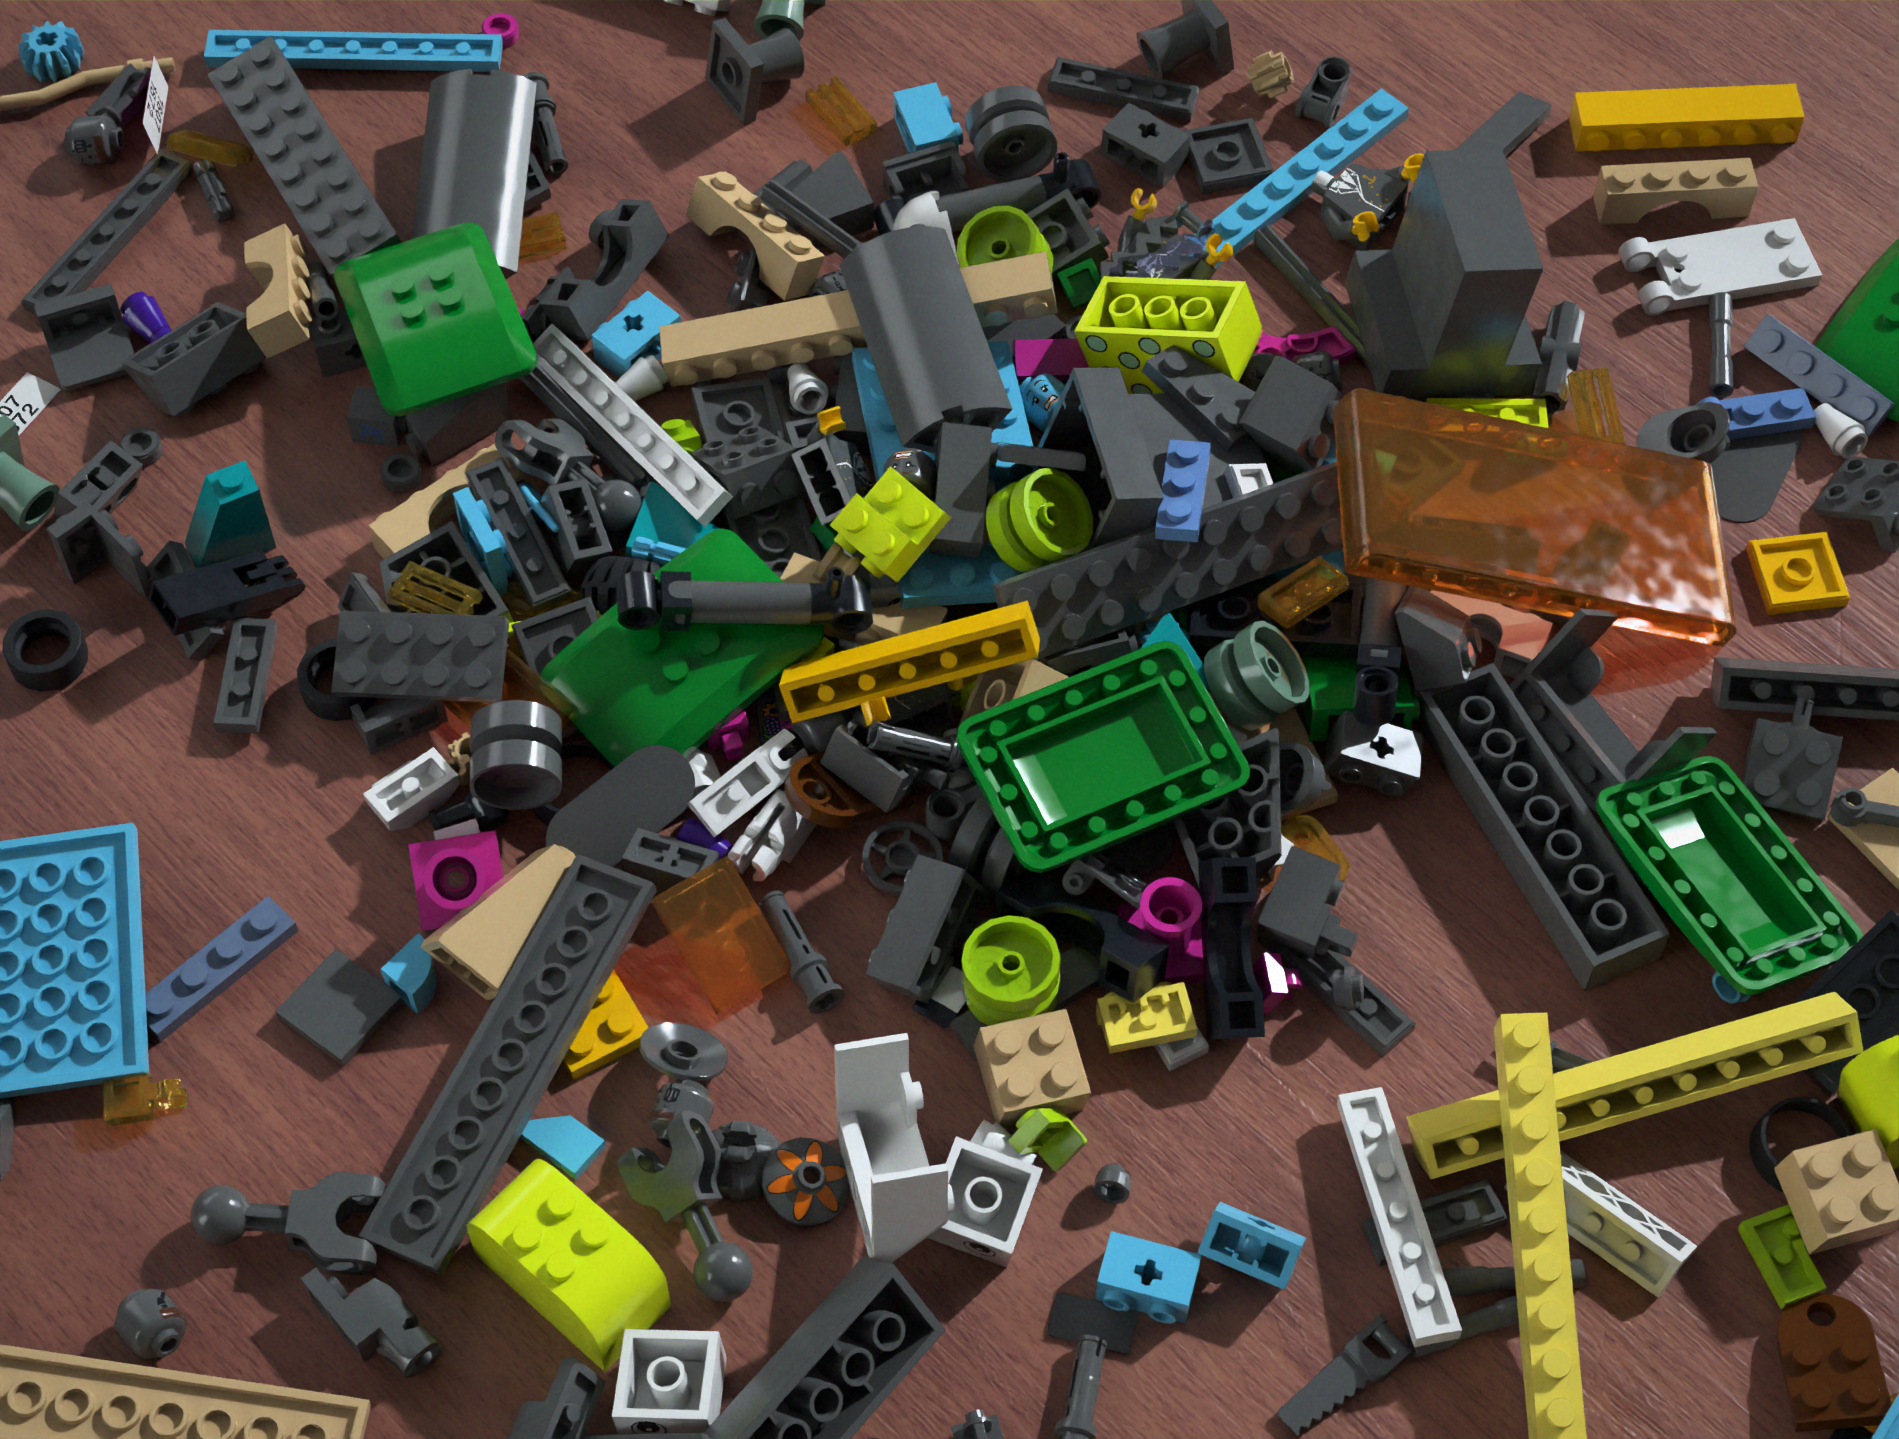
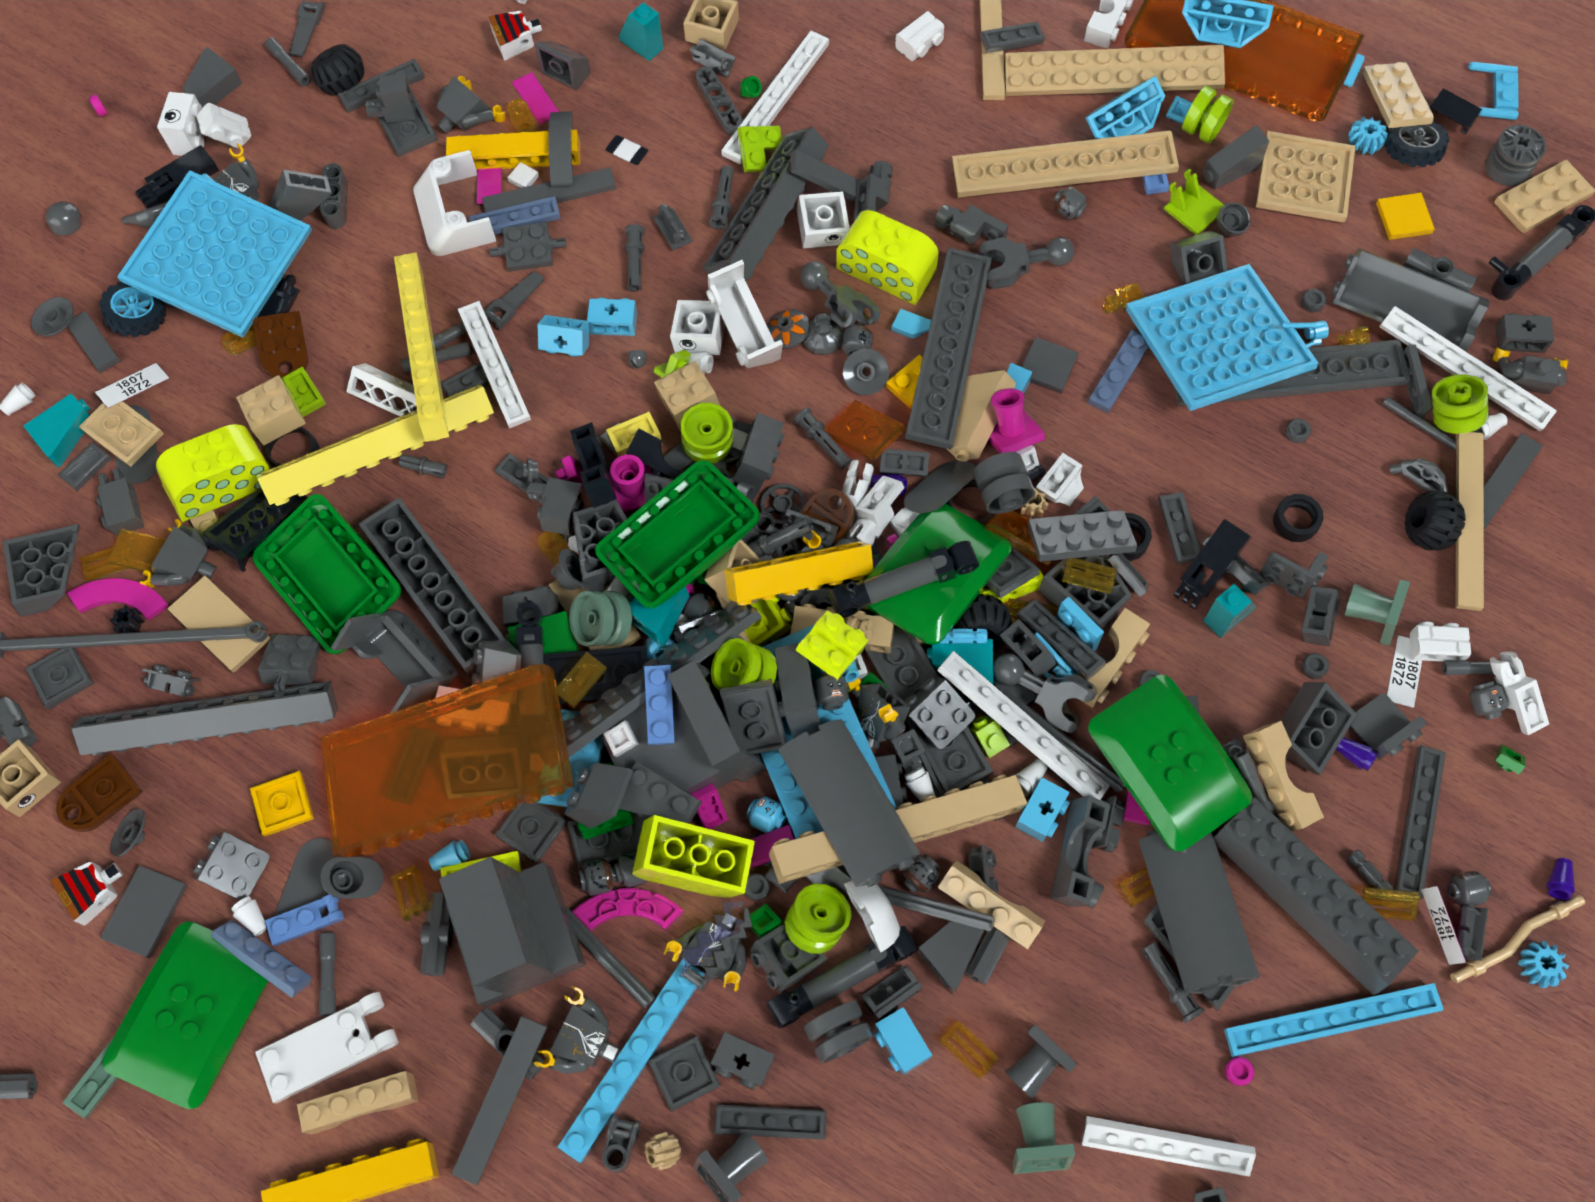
camera: 170 degrees right, 10 degrees up
(1081, 1316) = (644, 299): dark grey sticker -> none

